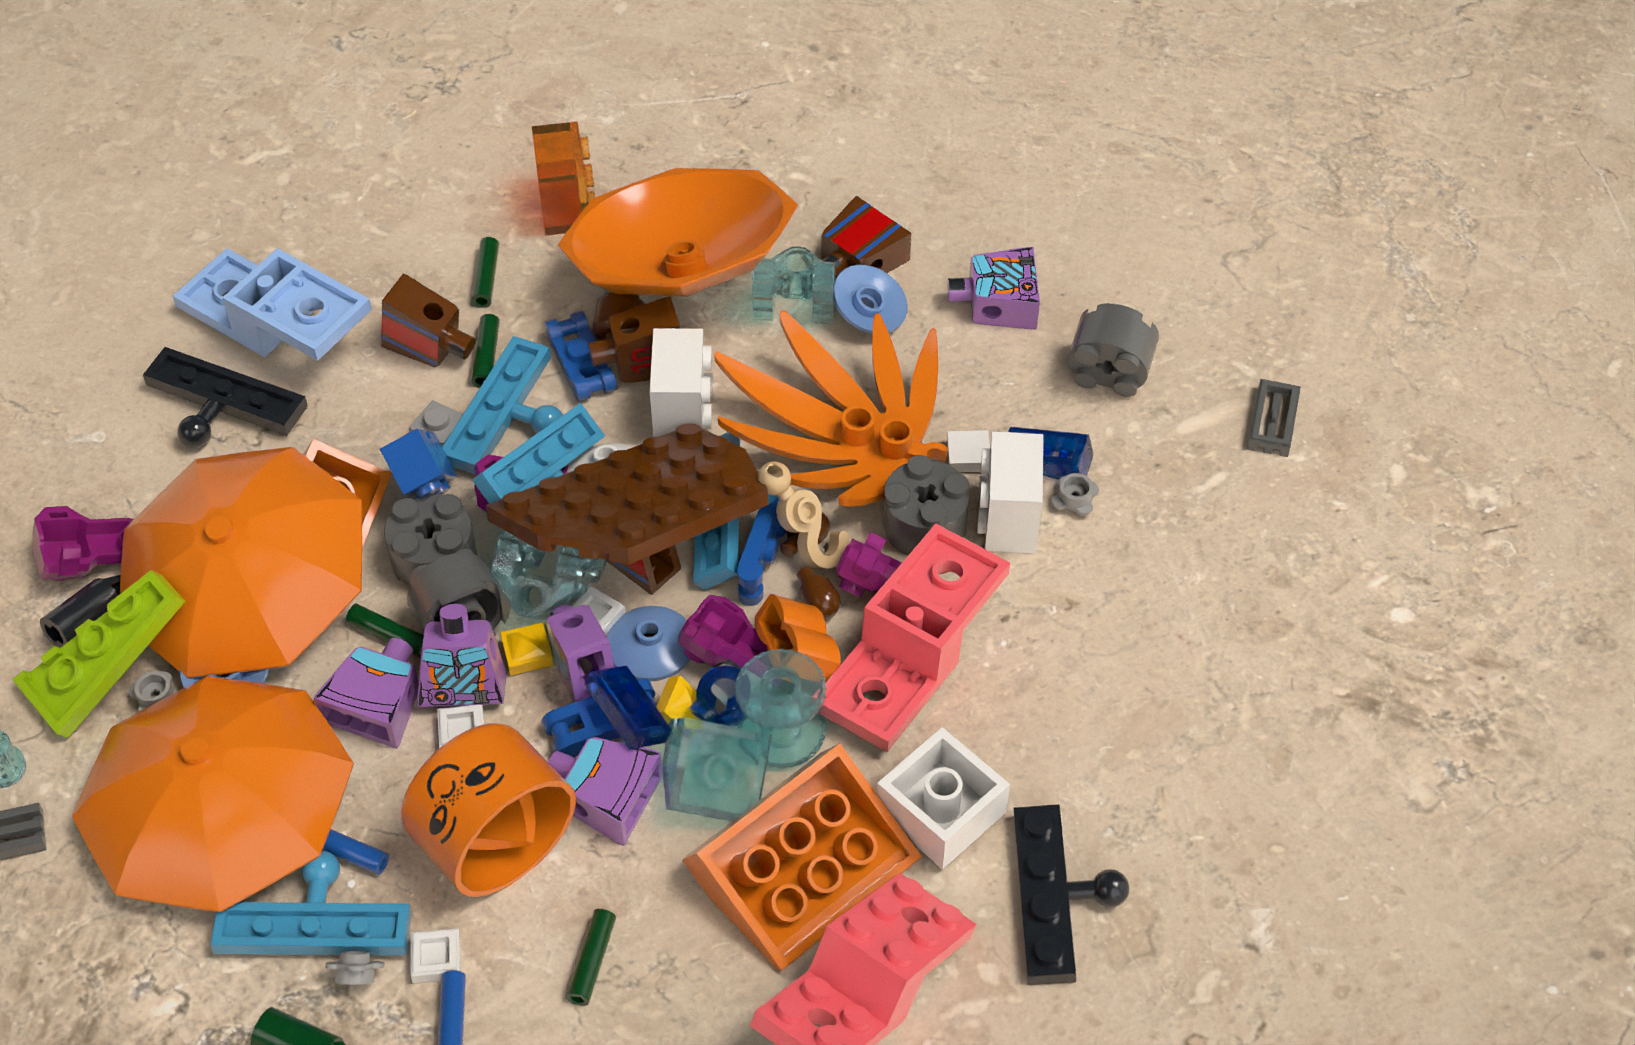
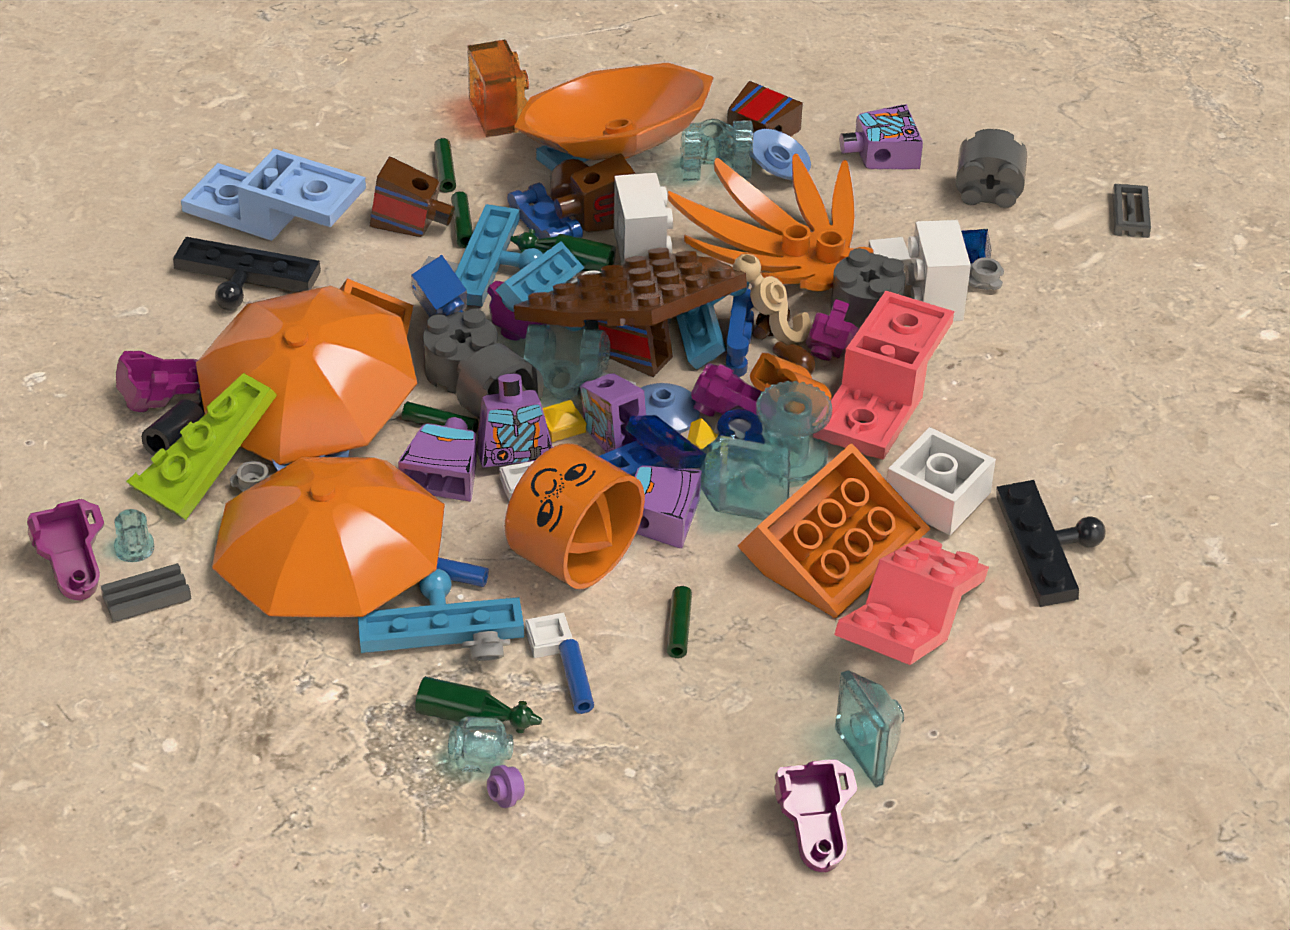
camera: 10 degrees left, 10 degrees down
(612, 417) = (589, 253): none -> dark green wheel

